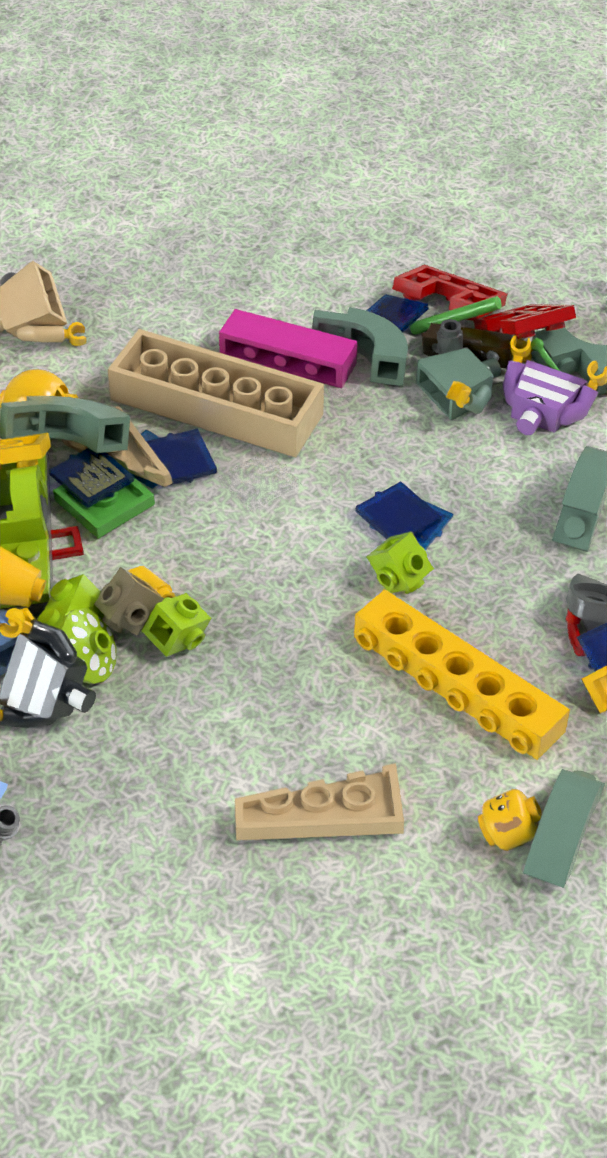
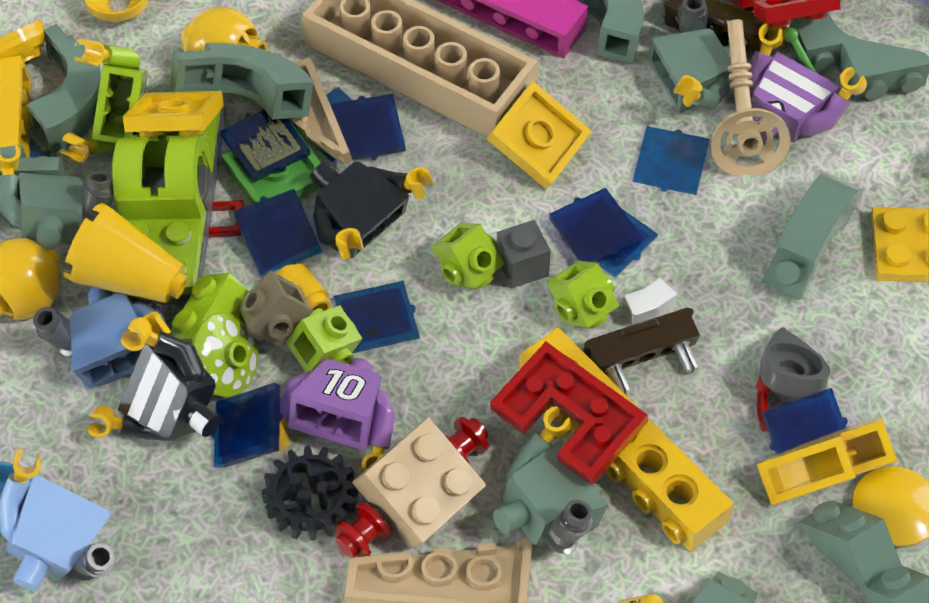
camera: 10 degrees right, 10 degrees up
(114, 544) = (277, 232): none -> clear blue piece
(120, 702) = (247, 426): none -> clear blue piece
(165, 745) = (288, 485): none -> black gear
(189, 512) = (361, 203): none -> black torso
(199, 674) = (340, 406): none -> medium lavender torso
(225, 603) = (380, 315): none -> clear blue piece
(282, 731) = (415, 486): none -> tan brick
(292, 544) = (468, 256): none -> lime brick
(334, 445) = (539, 135): none -> yellow plate
(340, 538) = (523, 253): none -> dark grey brick
(404, 722) = (547, 496): none -> sand green torso
(443, 651) = (605, 416): none -> red plate
(452, 456) = (671, 160): none -> clear blue piece
(458, 566) = (649, 302): none -> white piece
(464, 596) = (643, 343): none -> dark brown piece
(514, 420) = (746, 128): none -> tan dish

